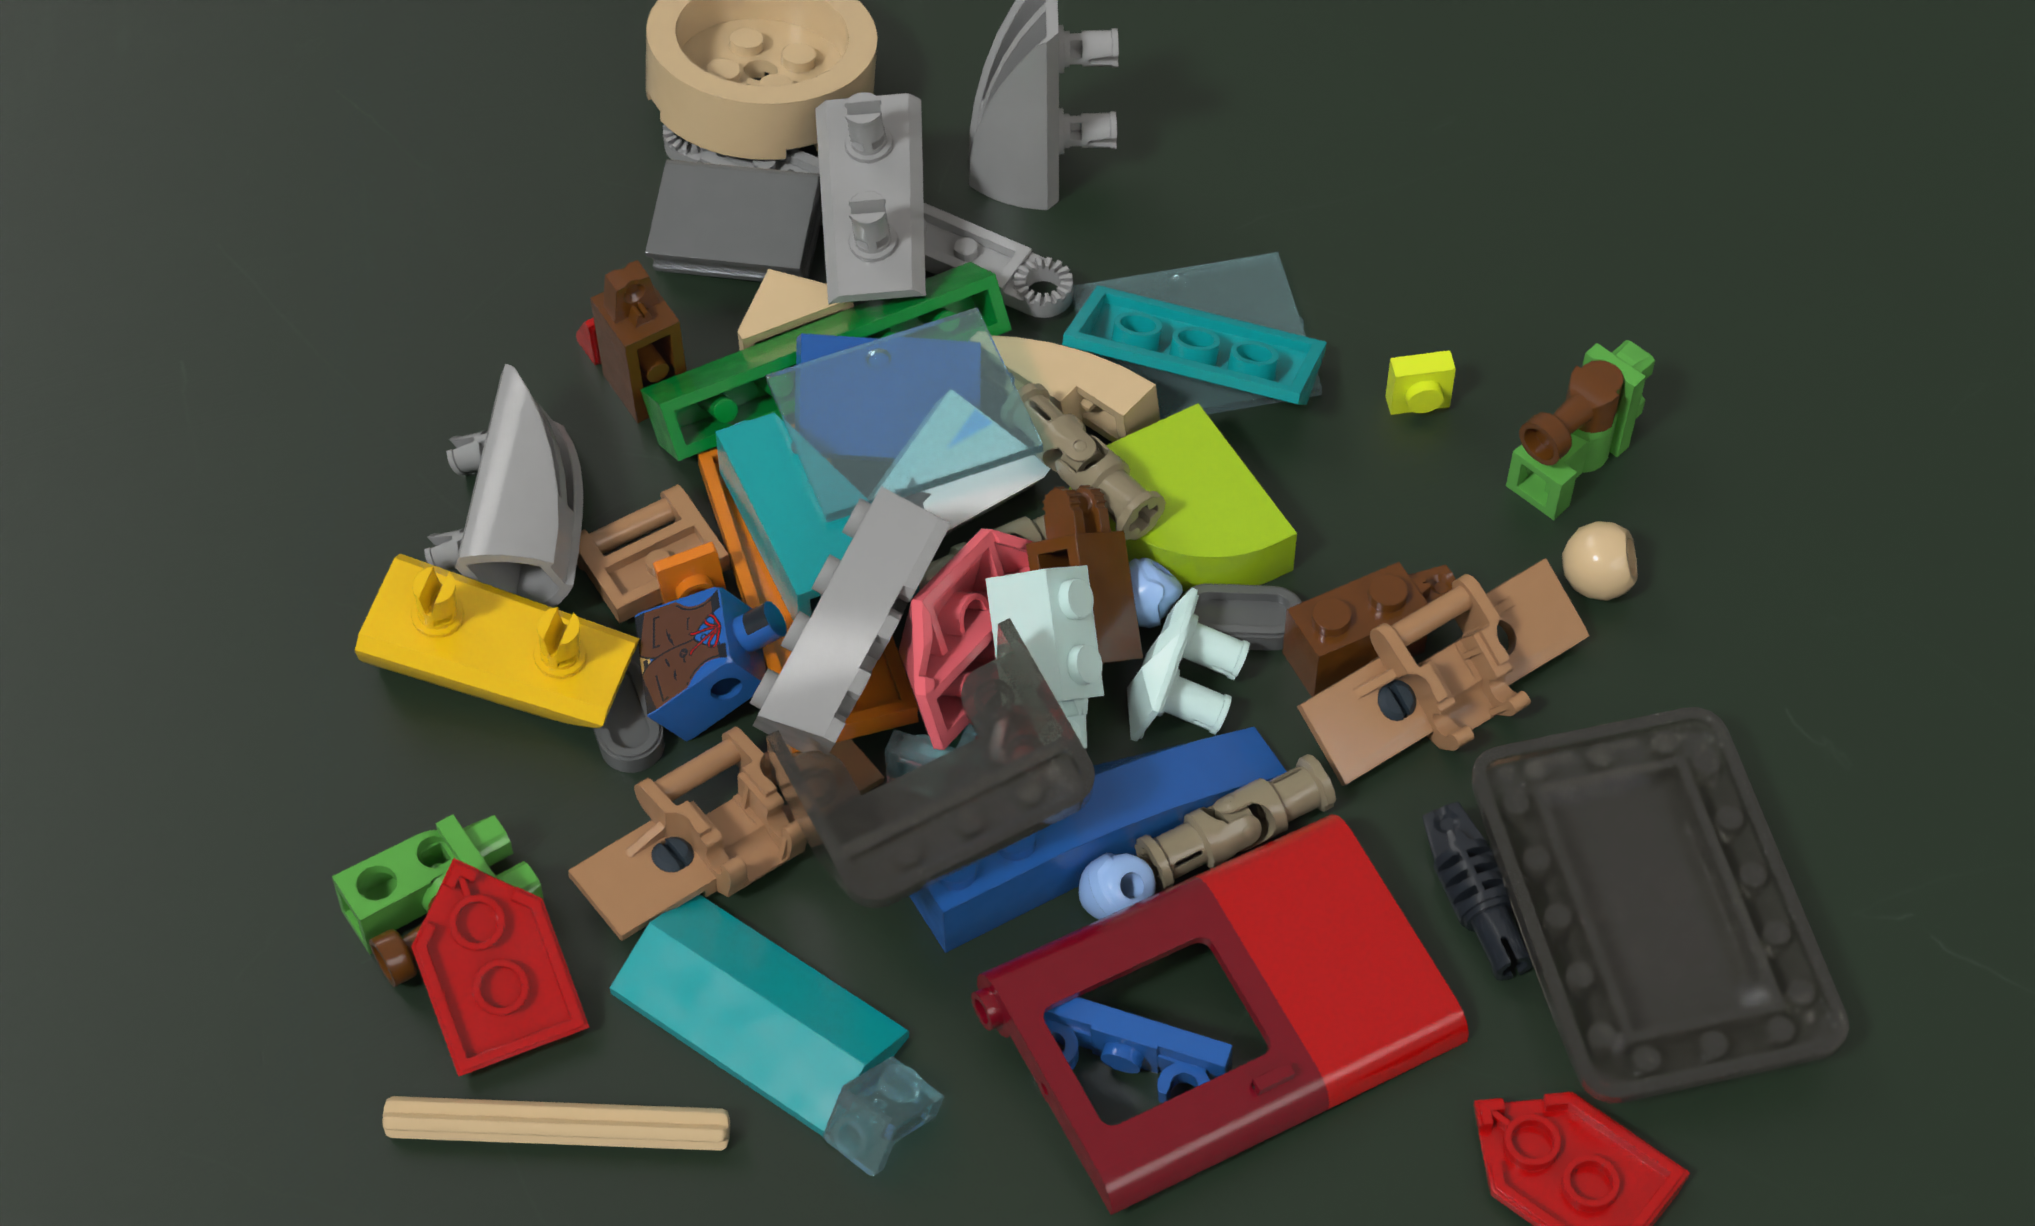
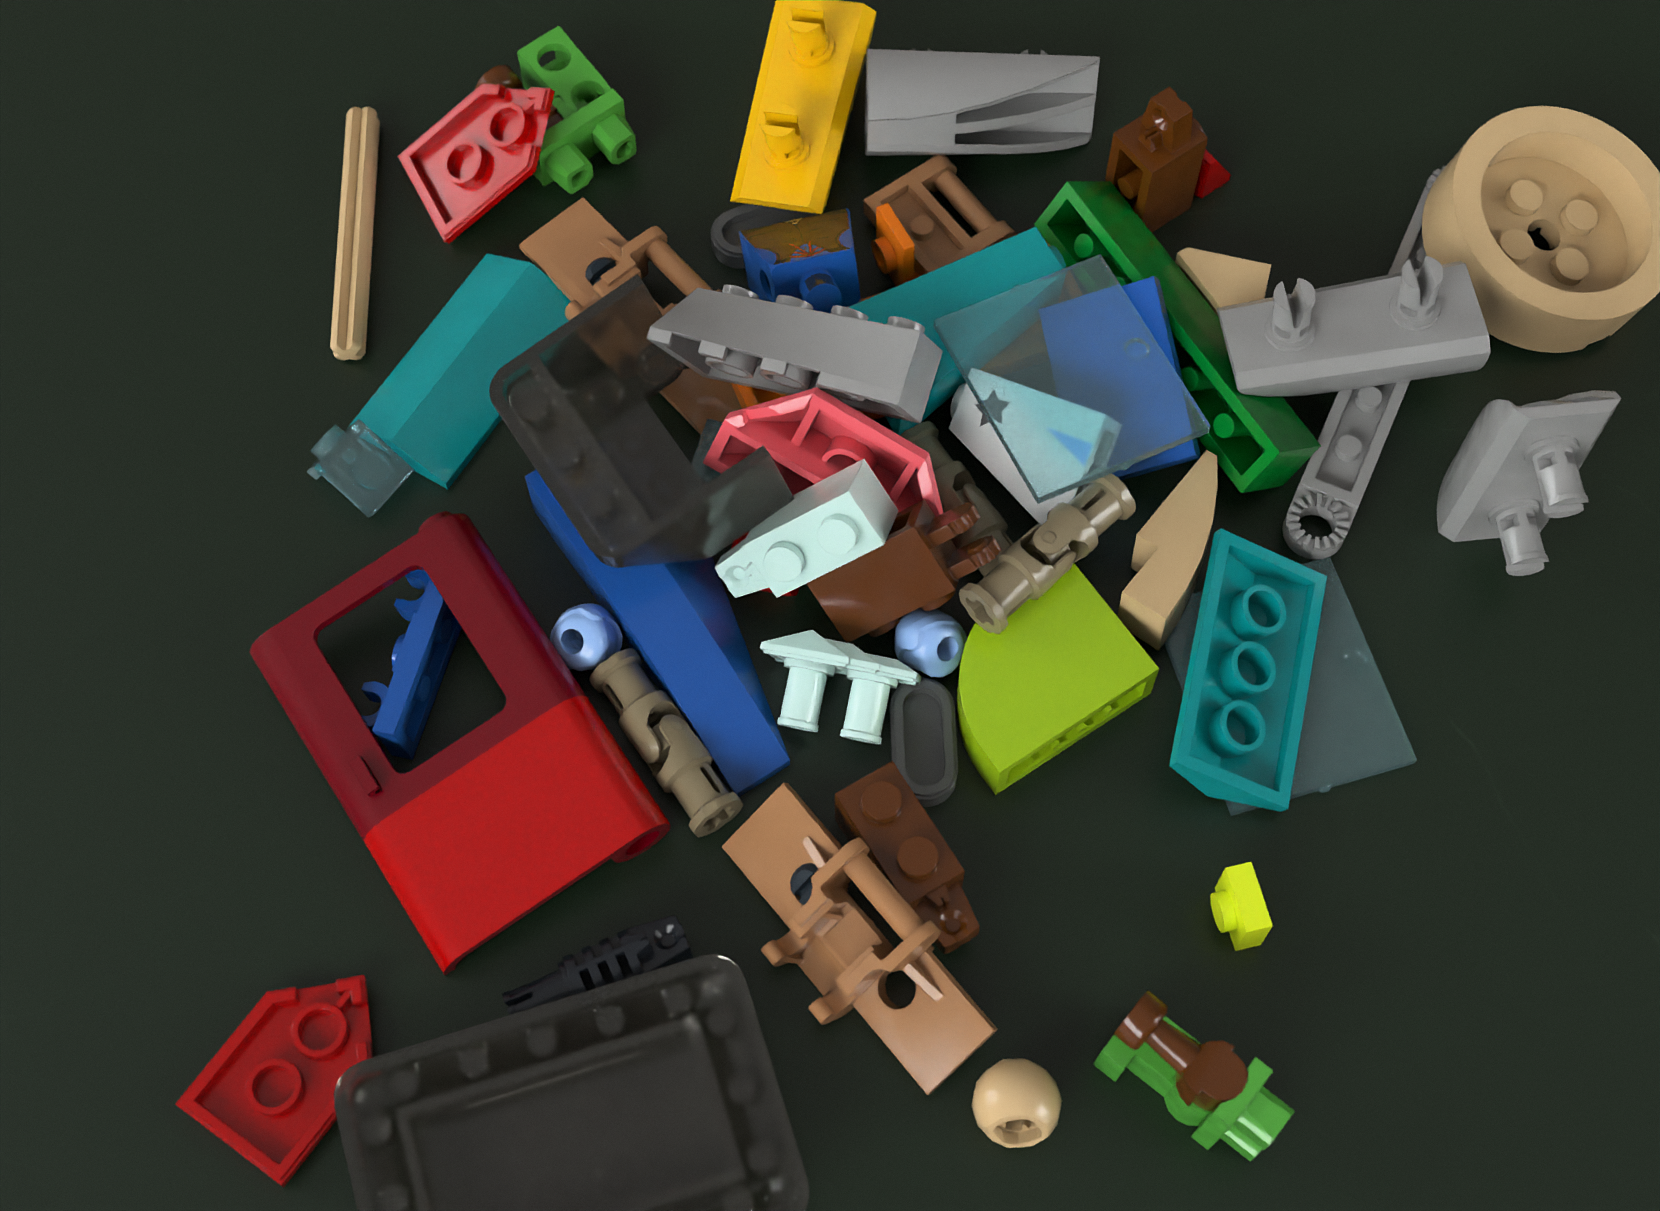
camera: 85 degrees right, 10 degrees up
(734, 221) = (1339, 223): dark grey piece -> none

